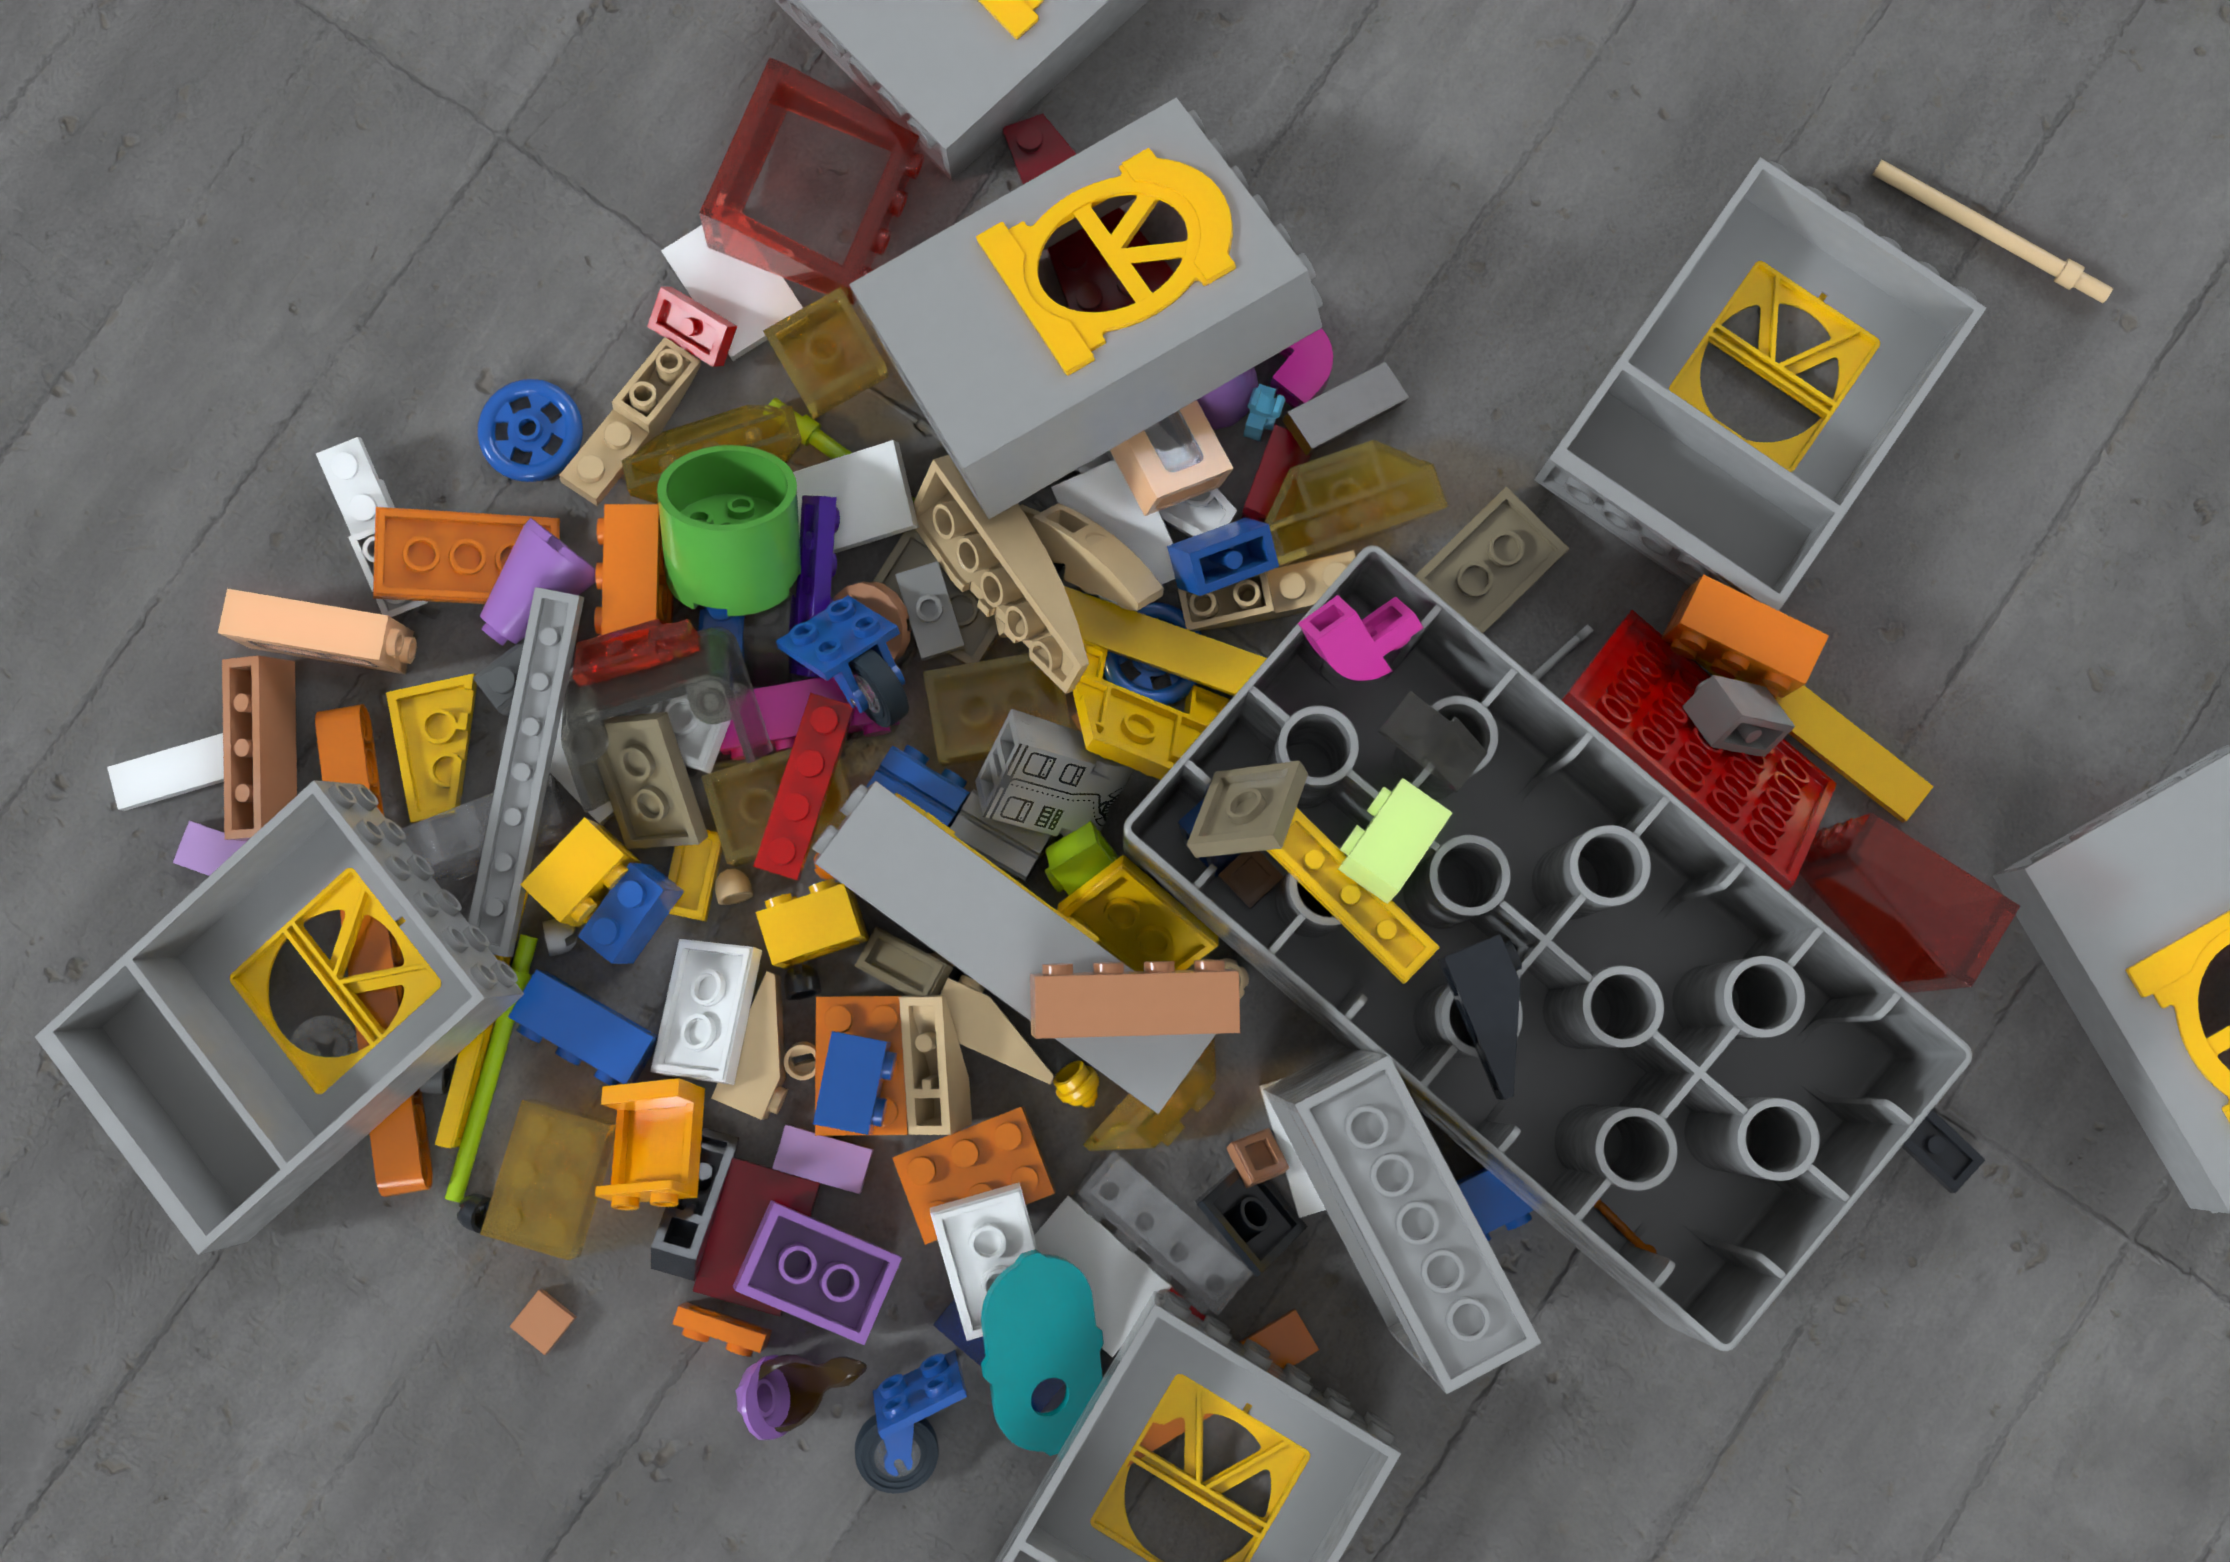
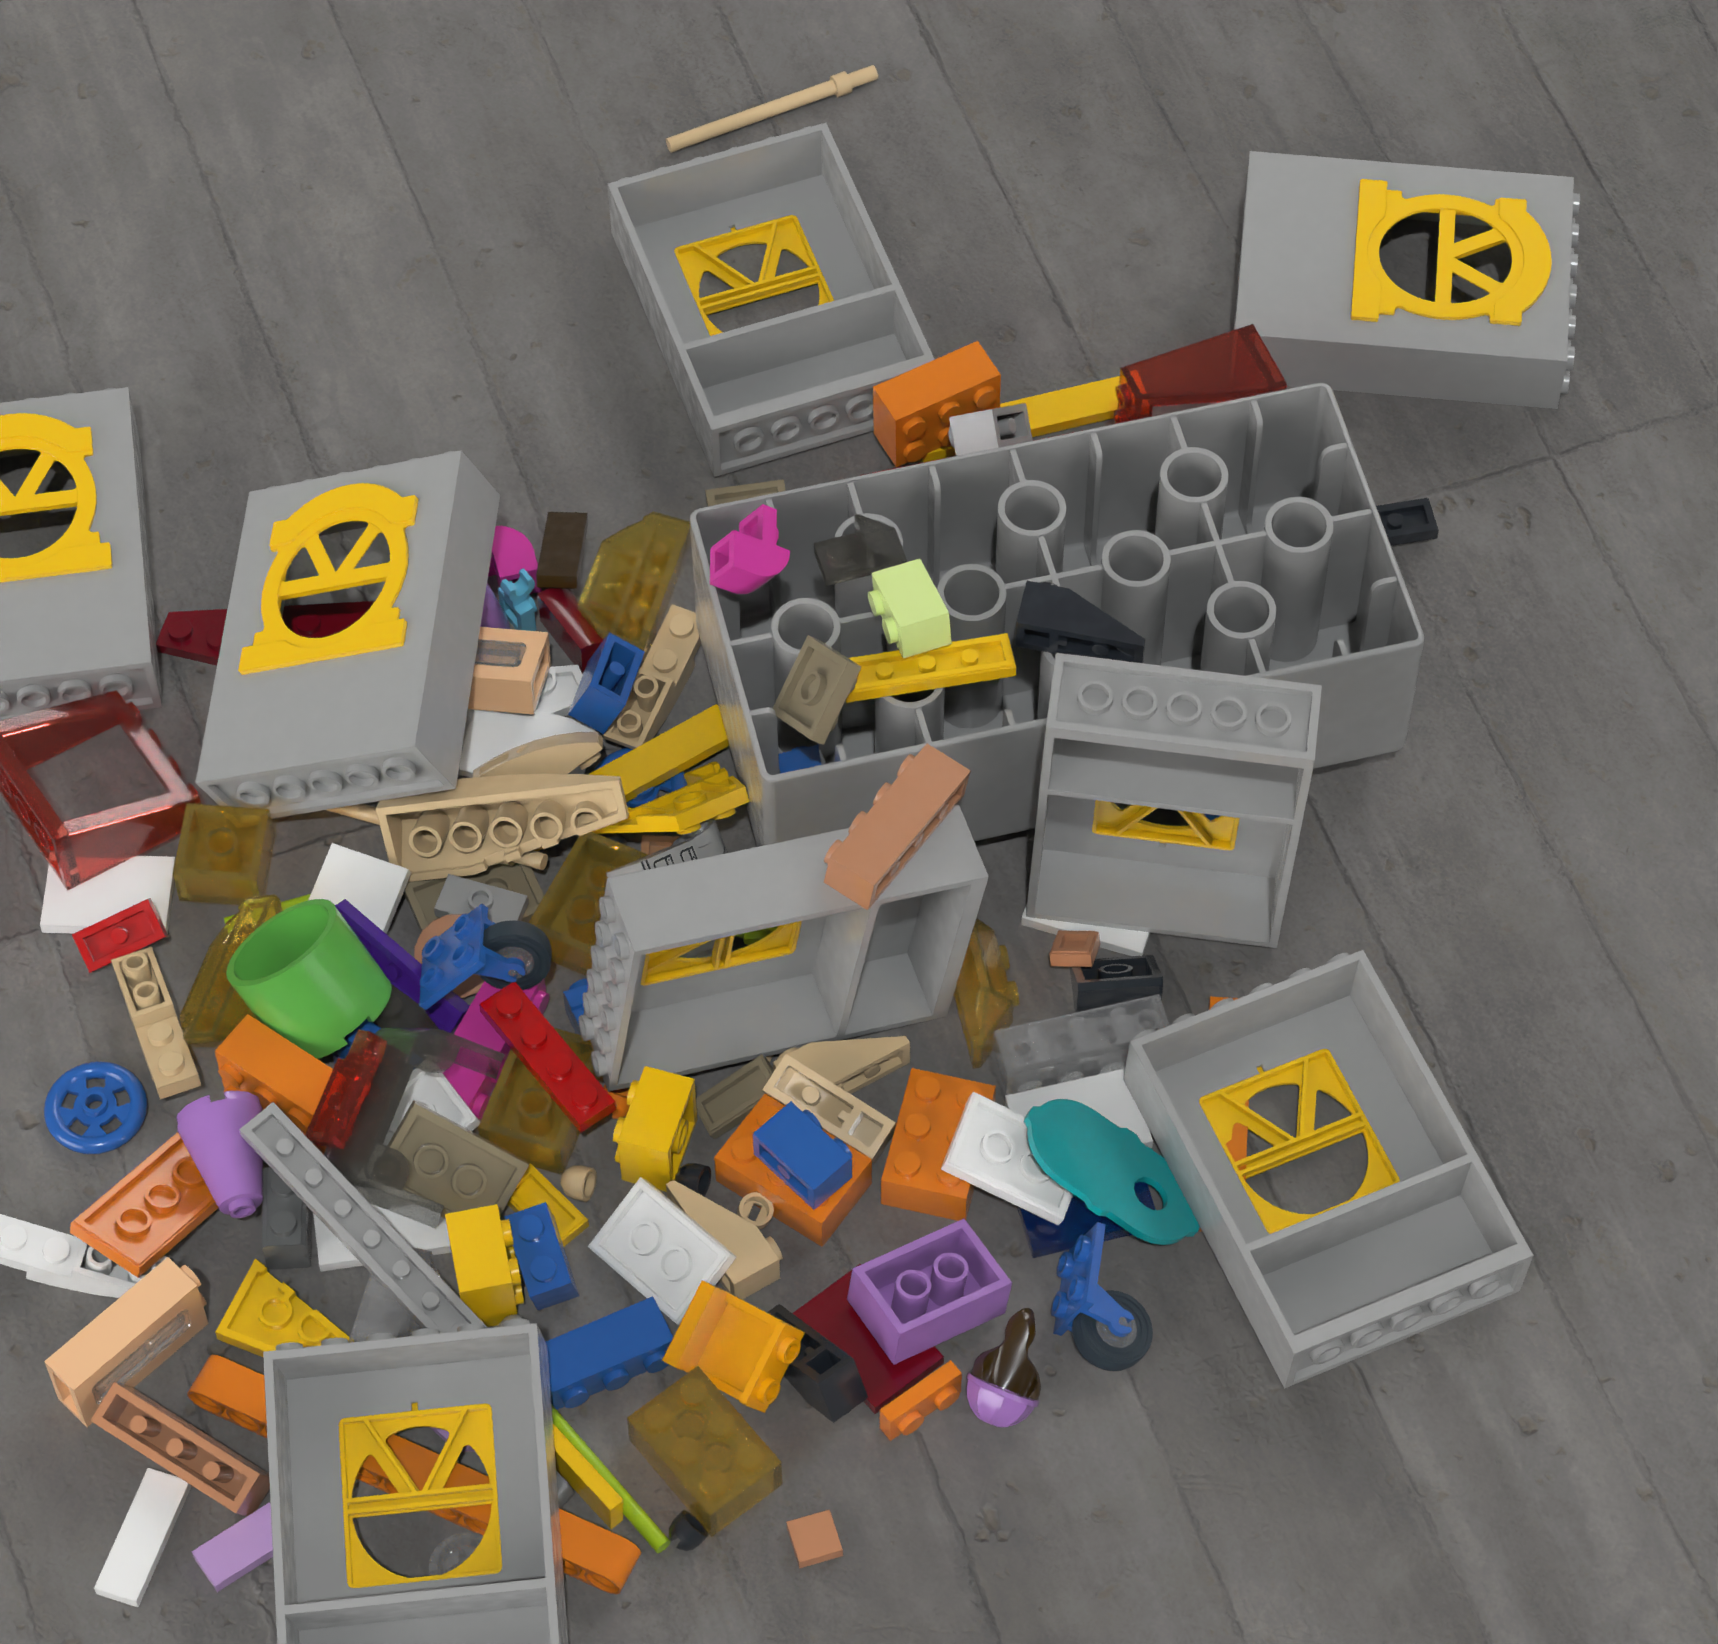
camera: 55 degrees left, 25 degrees down
(823, 1159) = (842, 1250): lavender tile -> none
(1077, 1084) = (925, 1035): yellow plate -> none

